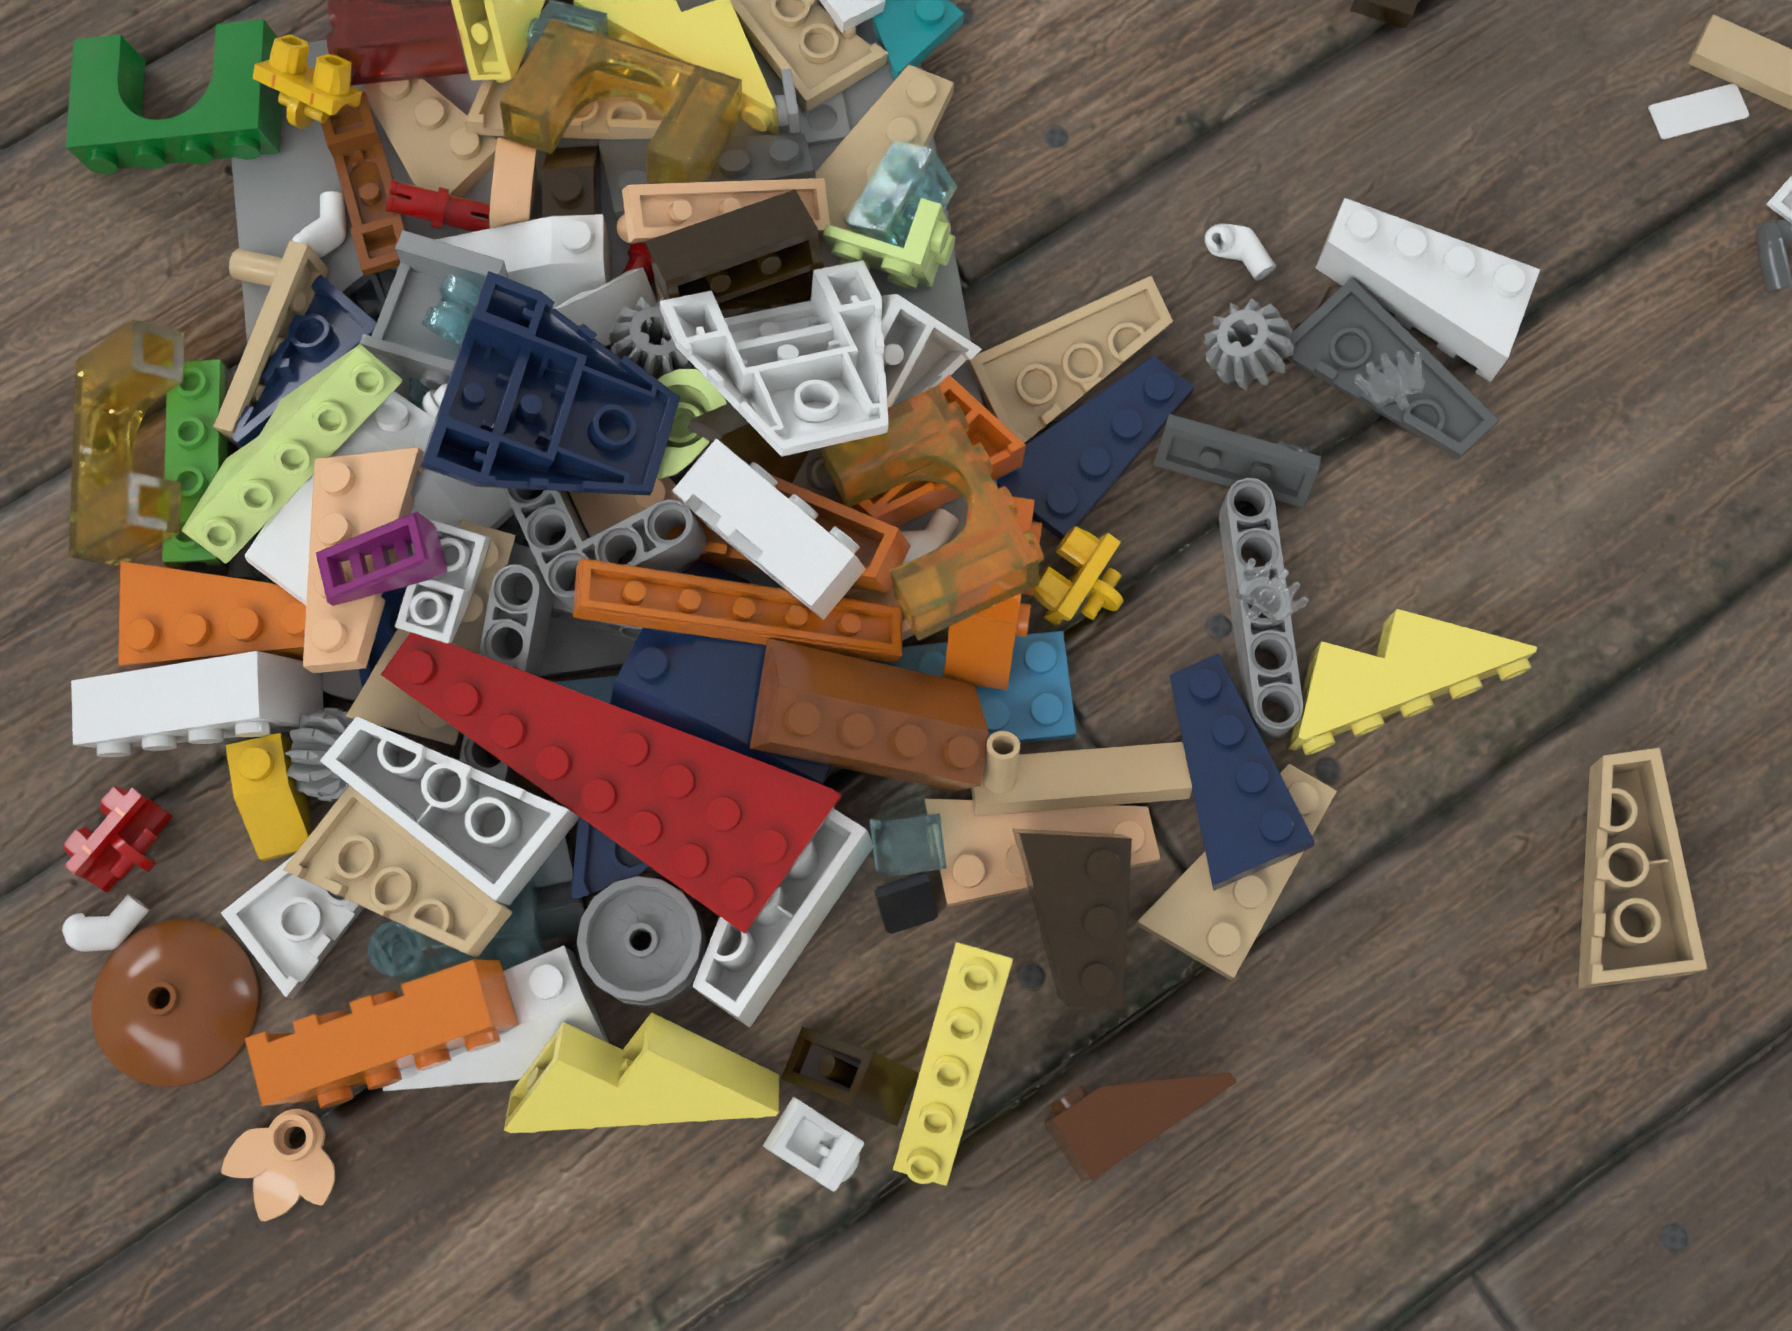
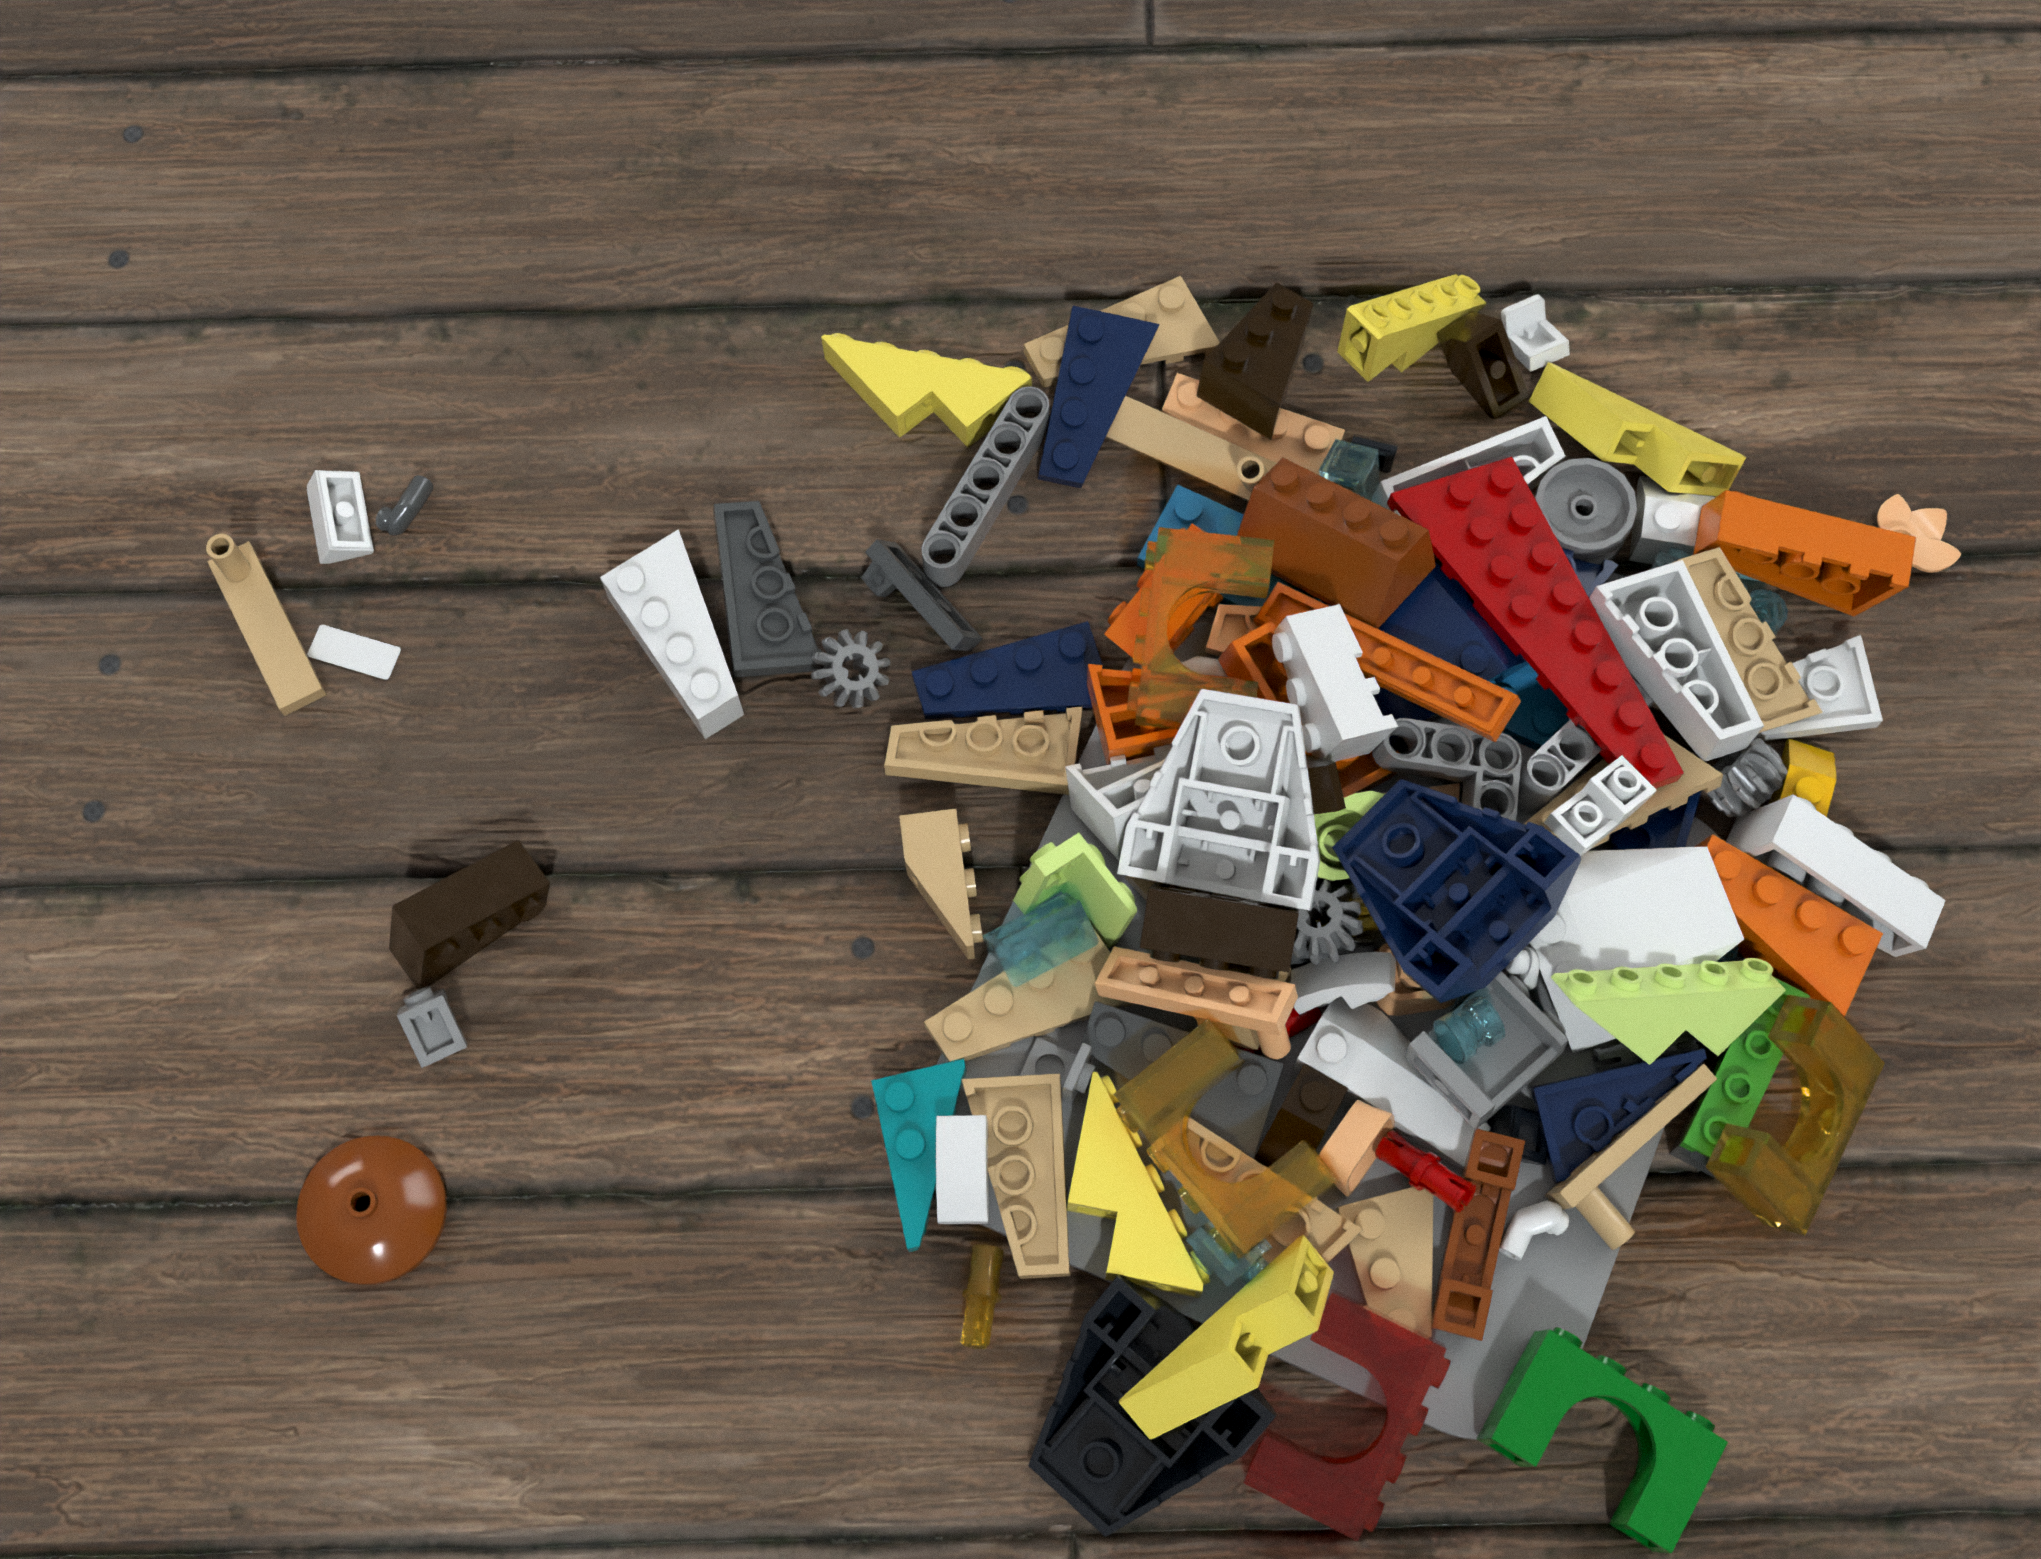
camera: 145 degrees left, 5 degrees down
(104, 932) = (1973, 764): white arm -> none
(119, 840) = (1958, 818): red hips -> none
(209, 1008) = (1930, 710): dark orange dish -> none
(307, 91) = (1483, 1346): yellow hips -> none
(348, 500) = (1654, 876): light nougat wing -> none
(409, 569) = (1603, 832): magenta slope -> none
(1036, 221) = (935, 866): none -> tan slope
(1065, 595) = (1098, 579): yellow hips -> none
(1116, 1120) = (1310, 223): reddish brown slope -> none
(1242, 245) = (789, 760): white arm -> none
(1267, 595) = (979, 475): clear piece -> none
(1394, 381) = (767, 576): clear piece -> none
(1635, 878) = (878, 169): tan wedge -> none

